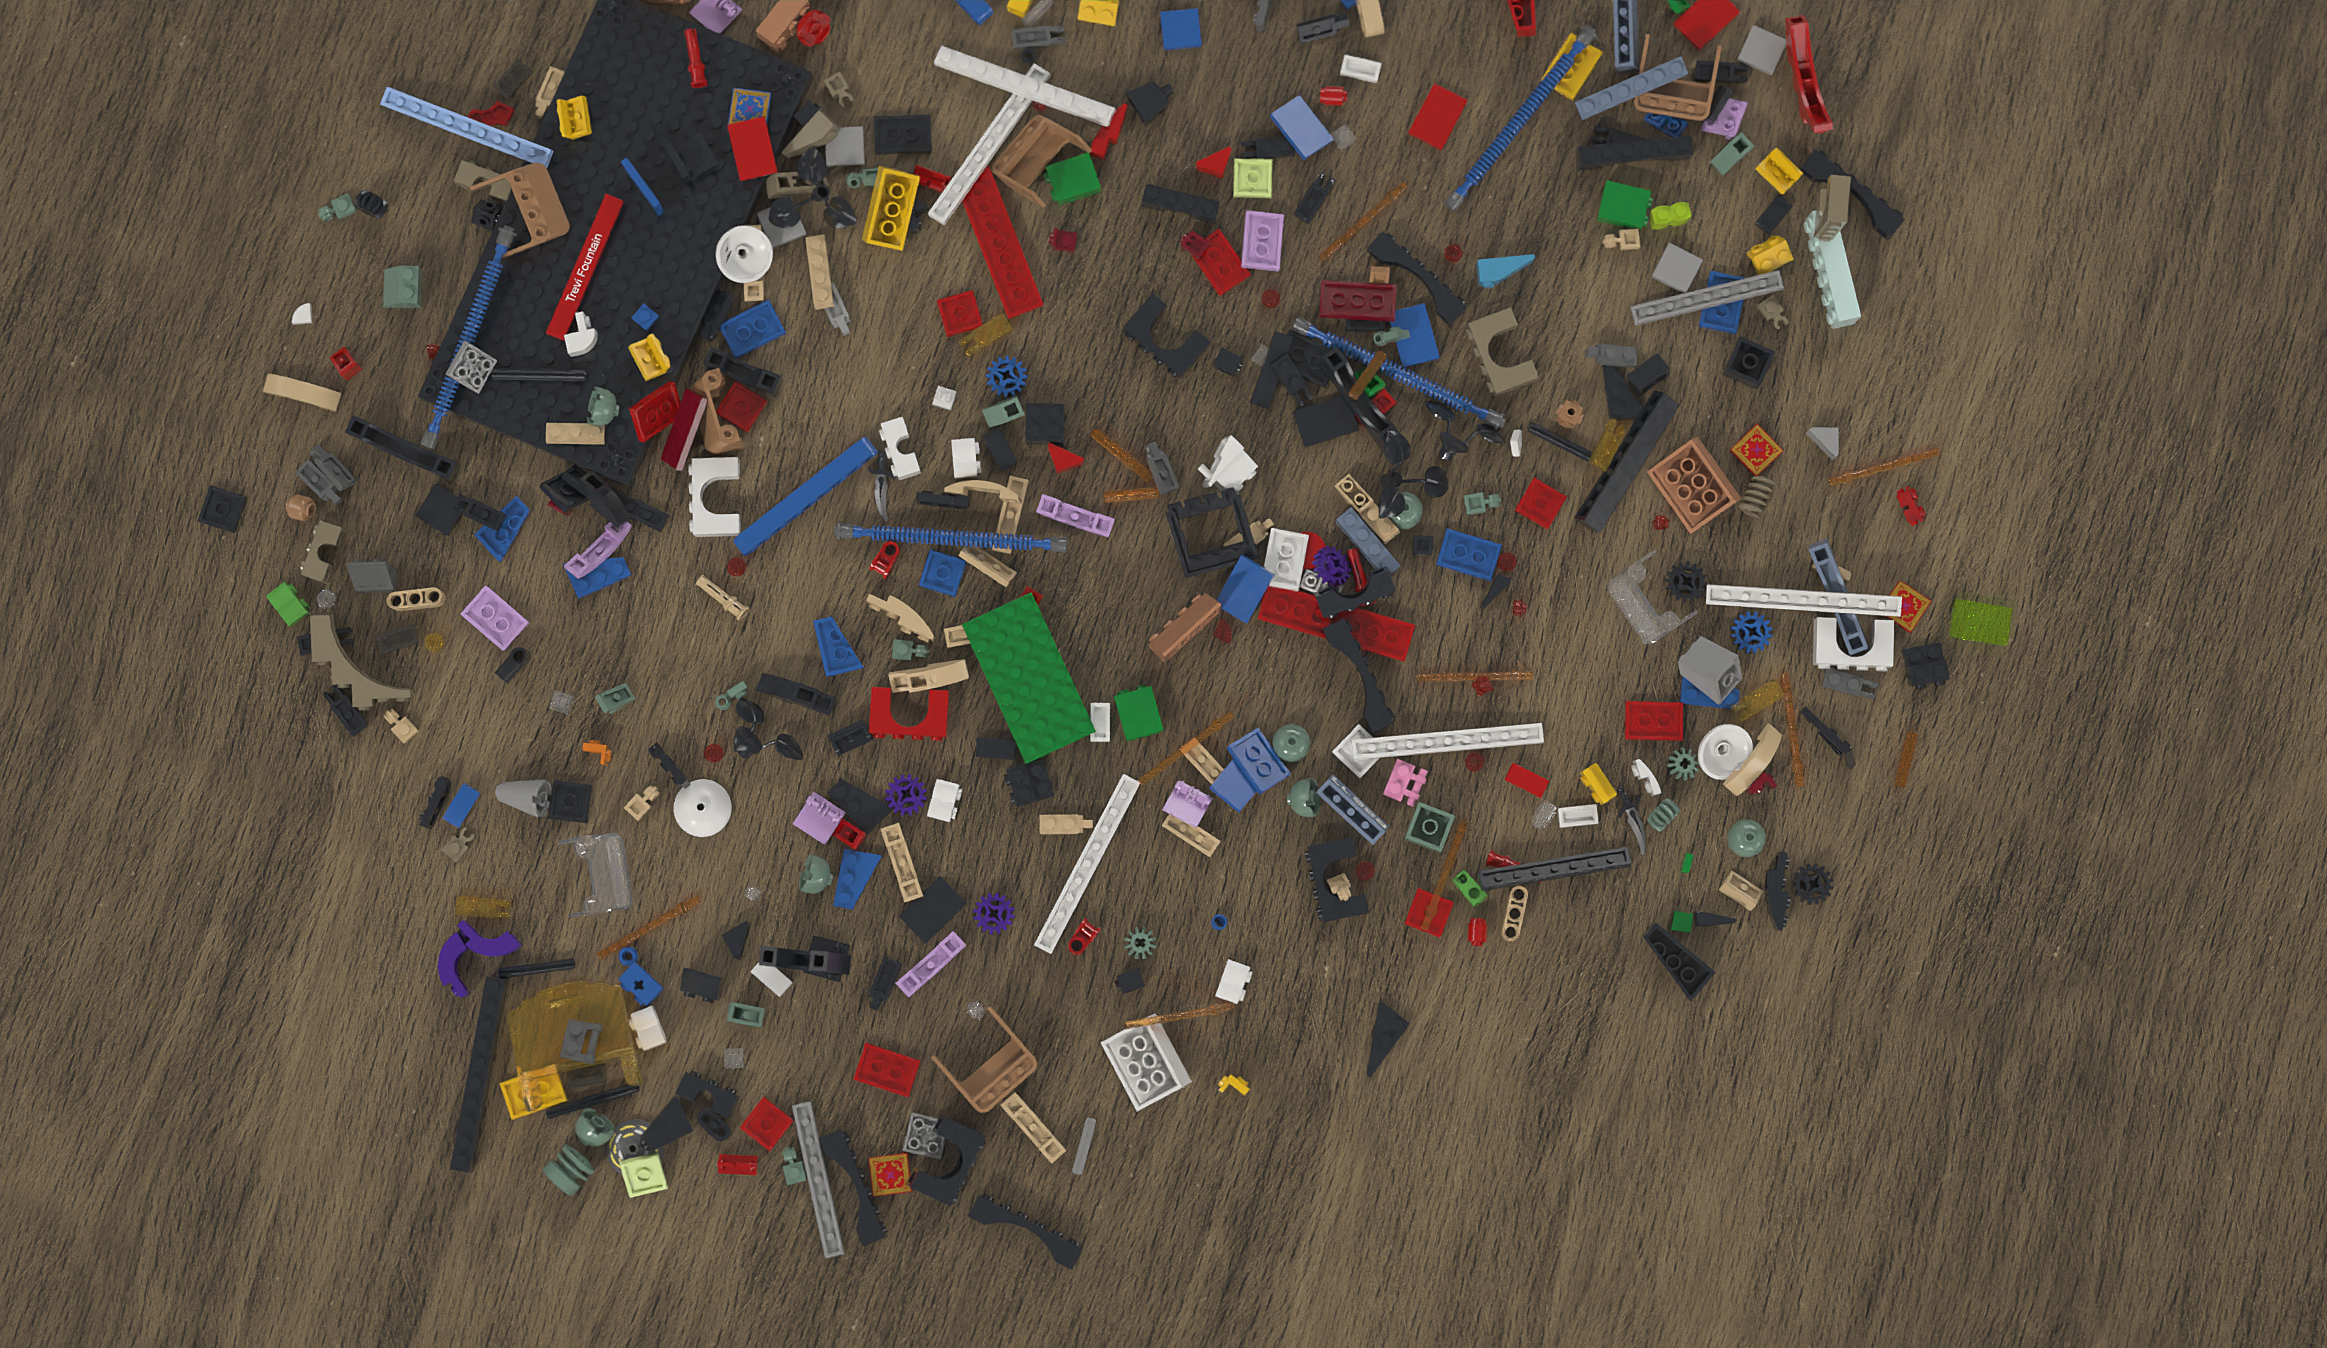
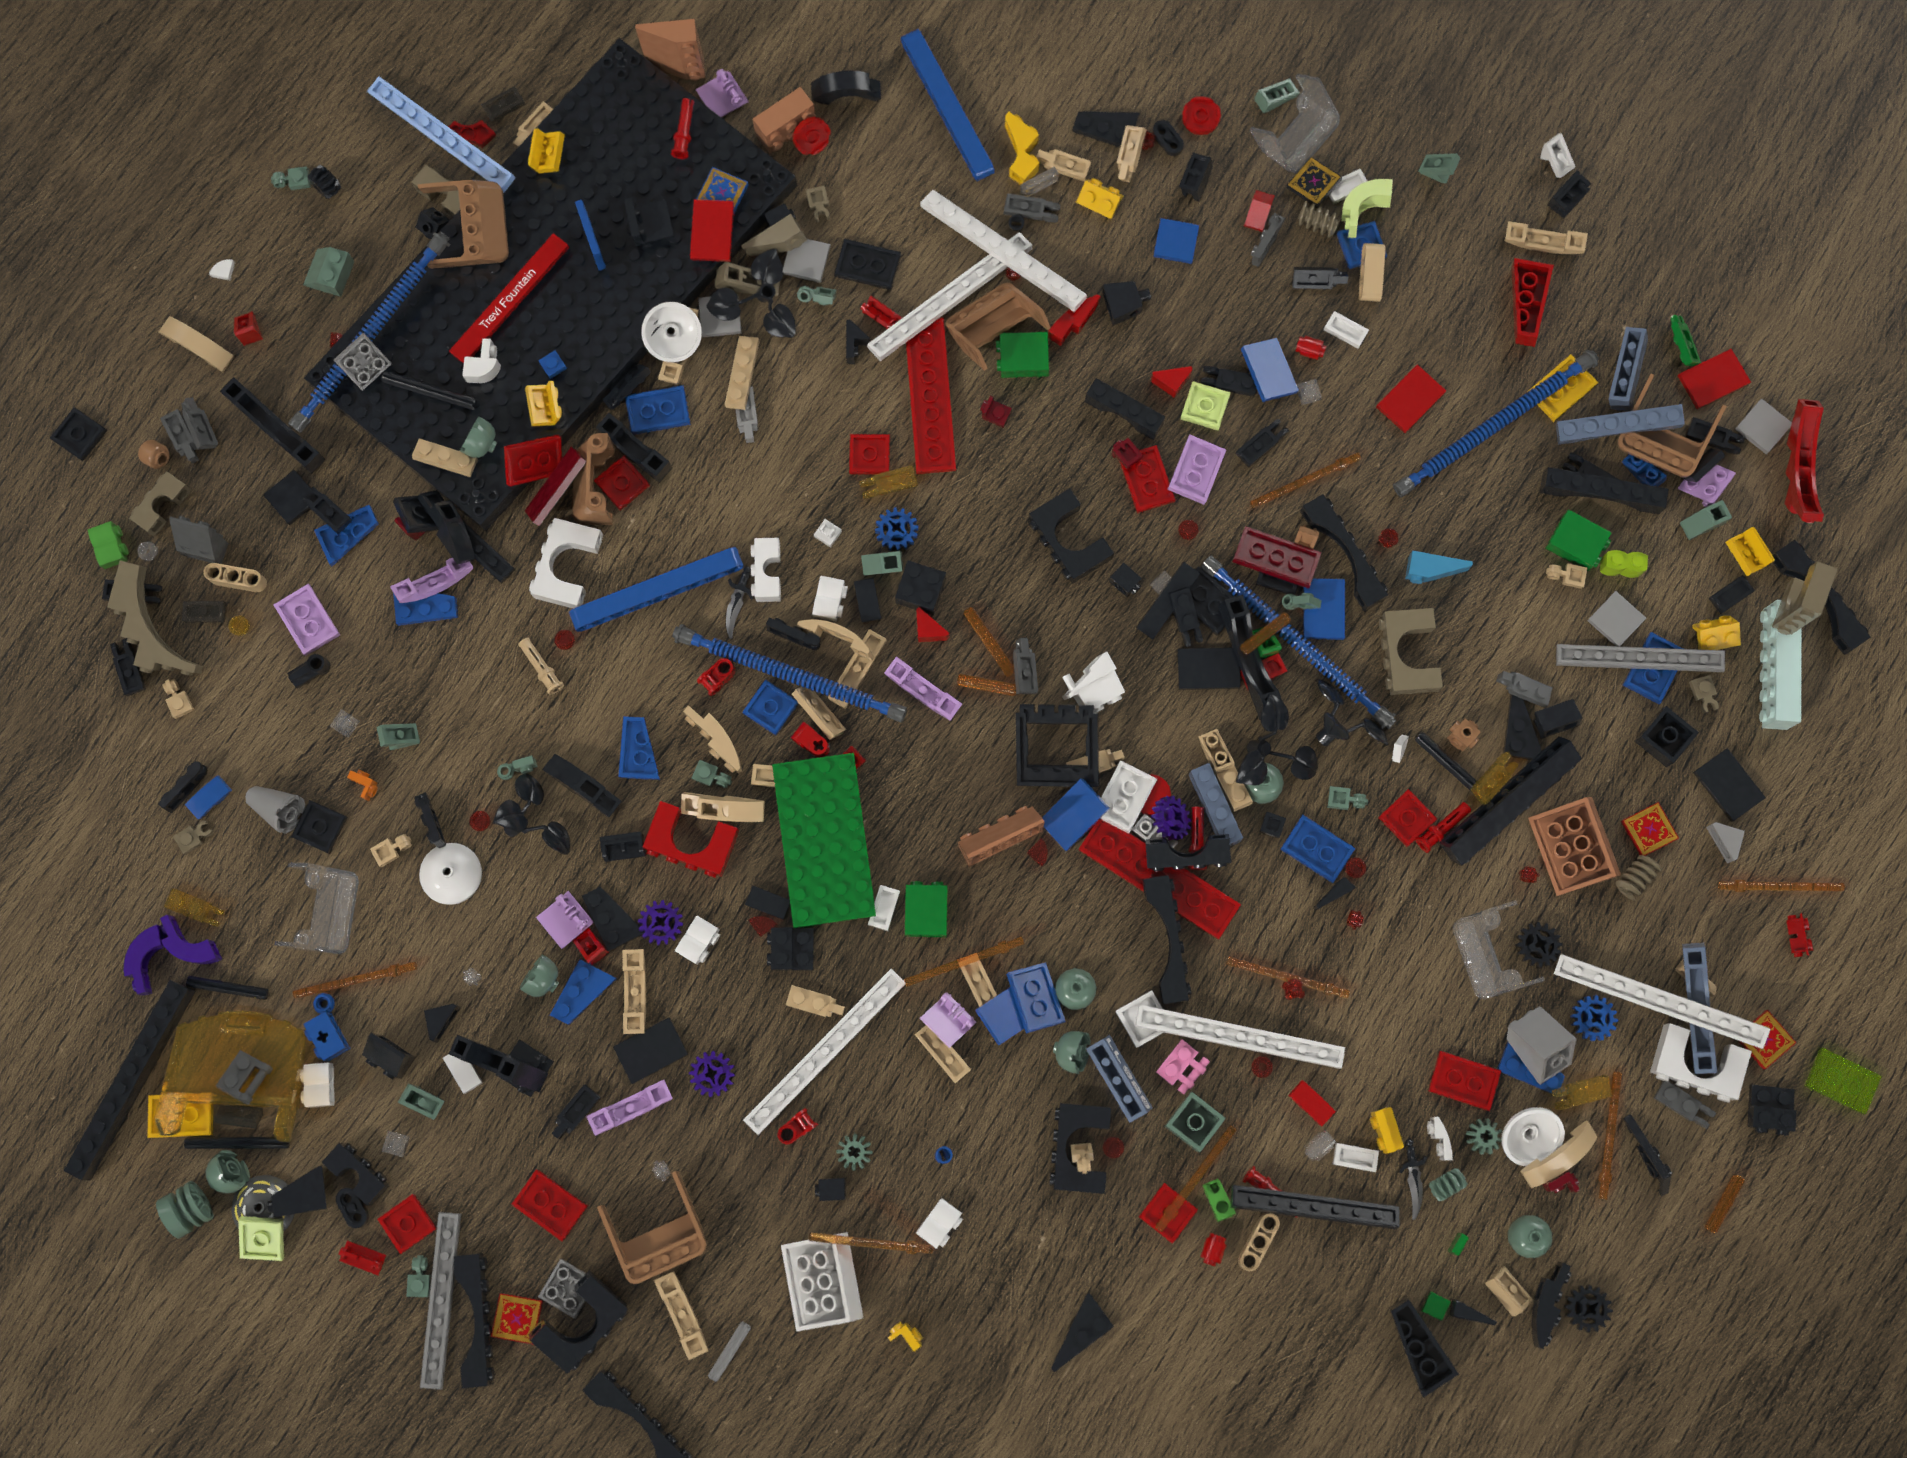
camera: 20 degrees right, 5 degrees down
(890, 208) = (832, 329): yellow slope -> none
(985, 591) = (808, 739): none -> red piece
(996, 769) = (762, 924): none -> clear red tile
(1570, 509) = (1437, 832): none -> red pin
(1815, 389) = (1729, 785): none -> black tile

